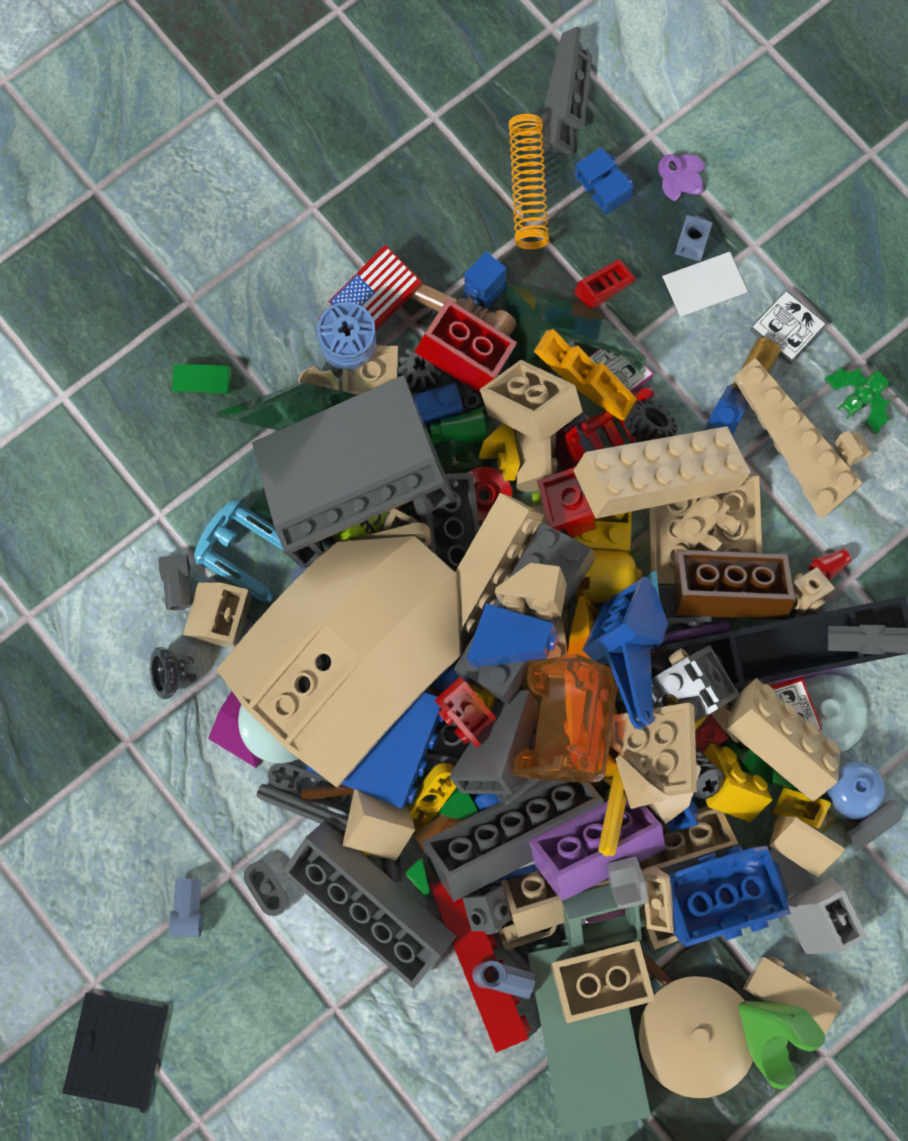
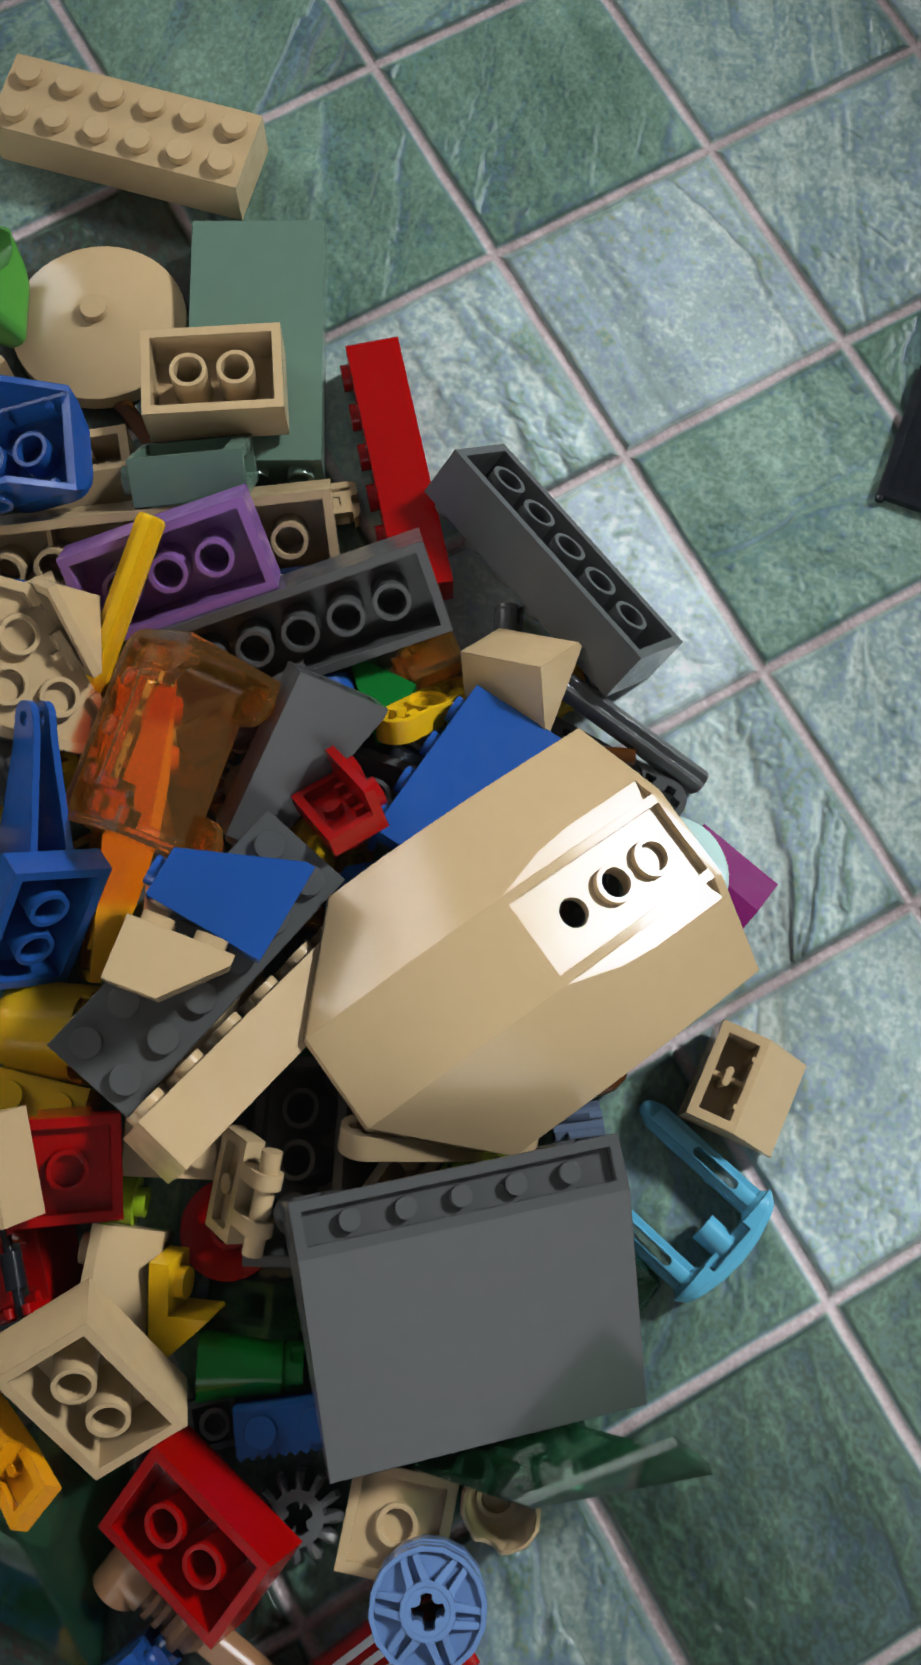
camera: 175 degrees left, 0 degrees up
(168, 672) = (835, 999): black hair -> none
(175, 573) = (810, 1181): dark grey piece -> none
(186, 916) = (839, 612): sand blue piece -> none
(201, 379) = (726, 1571): green slope -> none
(266, 889) = (711, 633): dark grey plate -> none
(418, 878) = (469, 591): green slope -> none
(474, 500) = (244, 1190): none -> tan plate
(487, 909) = (367, 512): dark grey brick -> none
(506, 979) = (364, 421): sand blue piece -> none
(627, 883) = (134, 484): light grey panel -> none
(659, 897) = (94, 465): tan slope -> none

